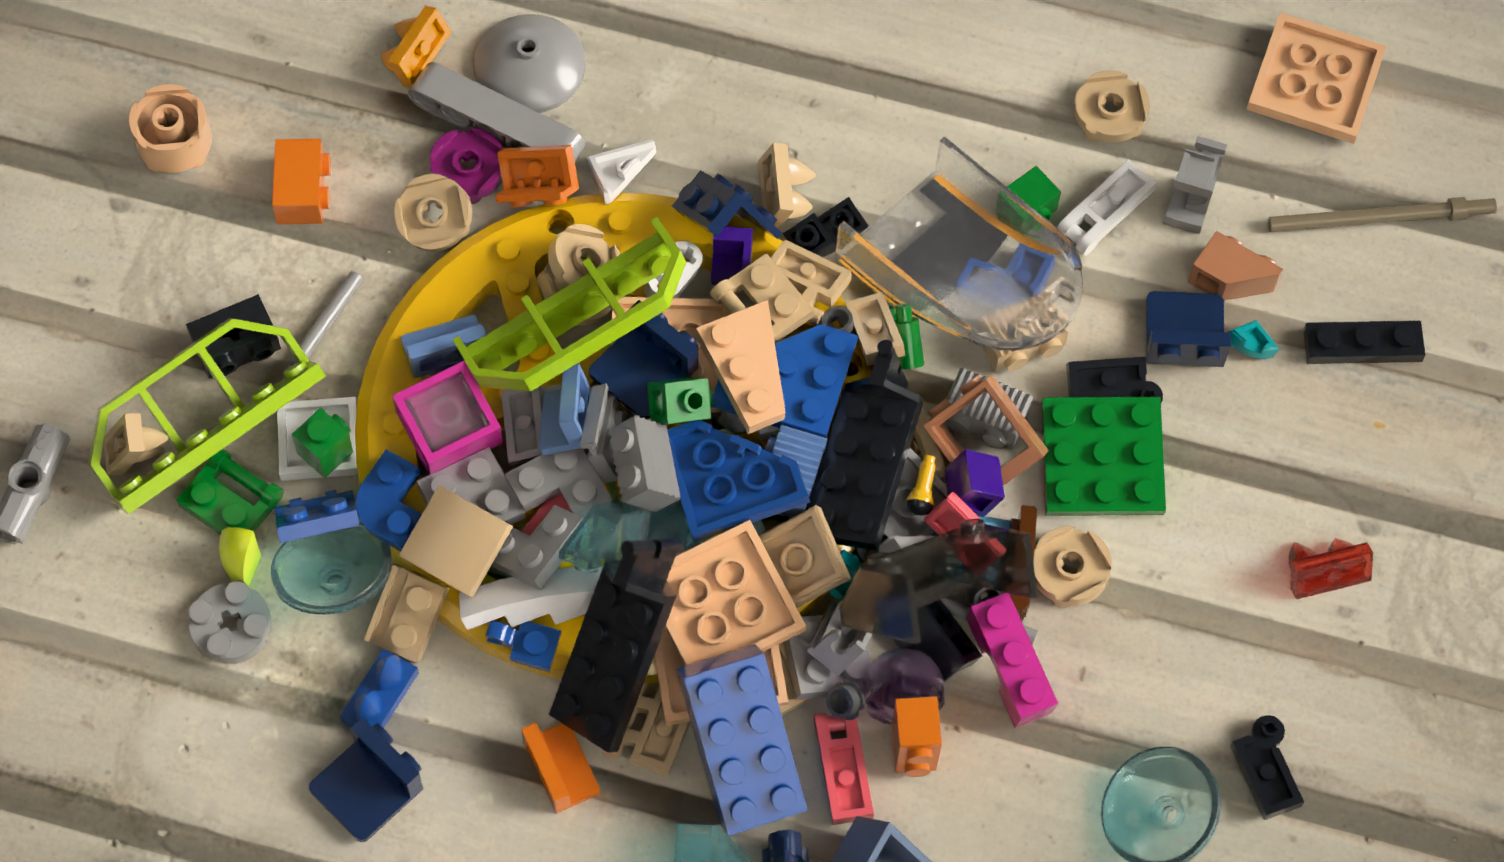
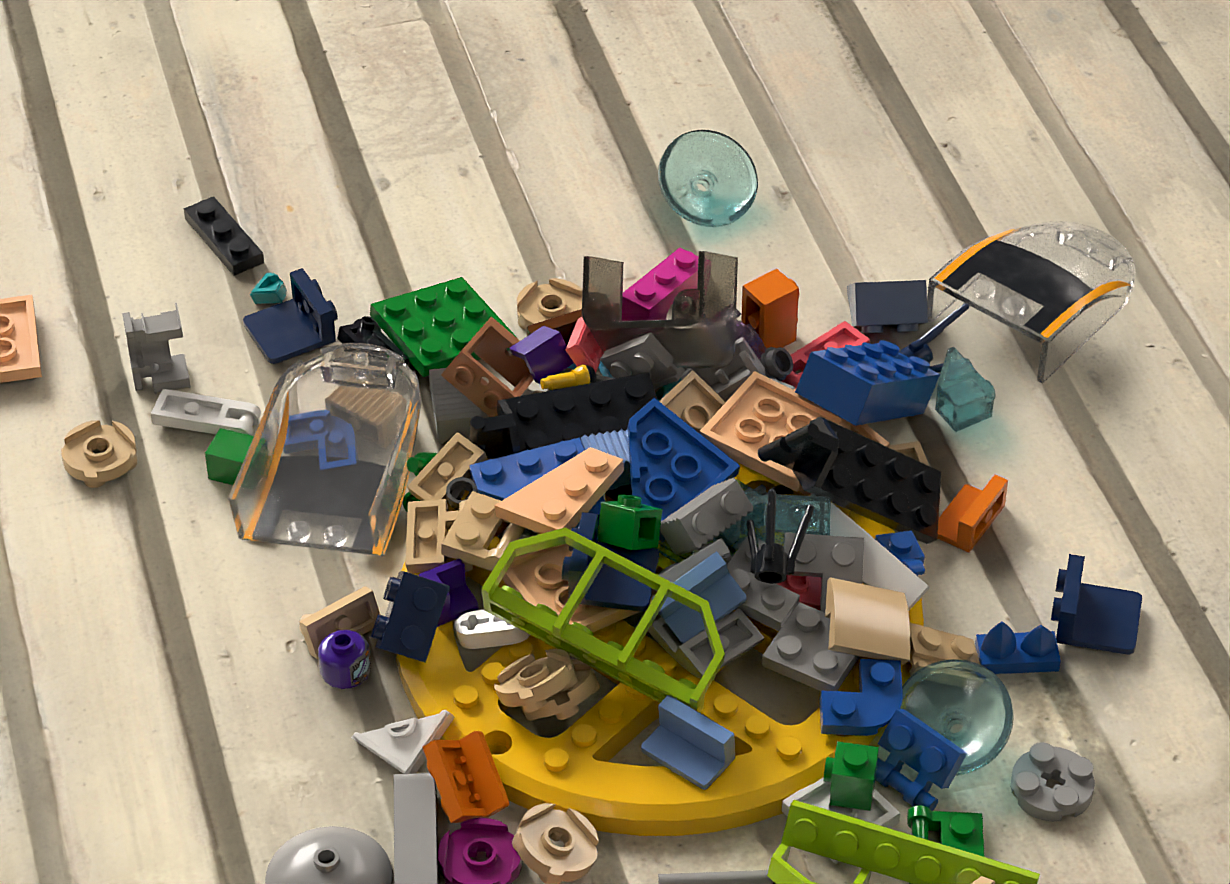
camera: 120 degrees left, 20 degrees down
(239, 554) = (995, 795): neon yellow brick -> none
(447, 418) = (766, 682): piece -> none
(554, 480) = (771, 562): none -> black plant
(731, 159) = (344, 659): none -> dark purple head
(821, 232) = (348, 574): black slope -> none
(1233, 270) = (215, 321): nougat slope -> none
(1266, 768) = (624, 155): black hinge -> none
(1324, 572) = (449, 183): clear red tile -> none
(1454, 209) = (63, 230): dark tan bar -> none

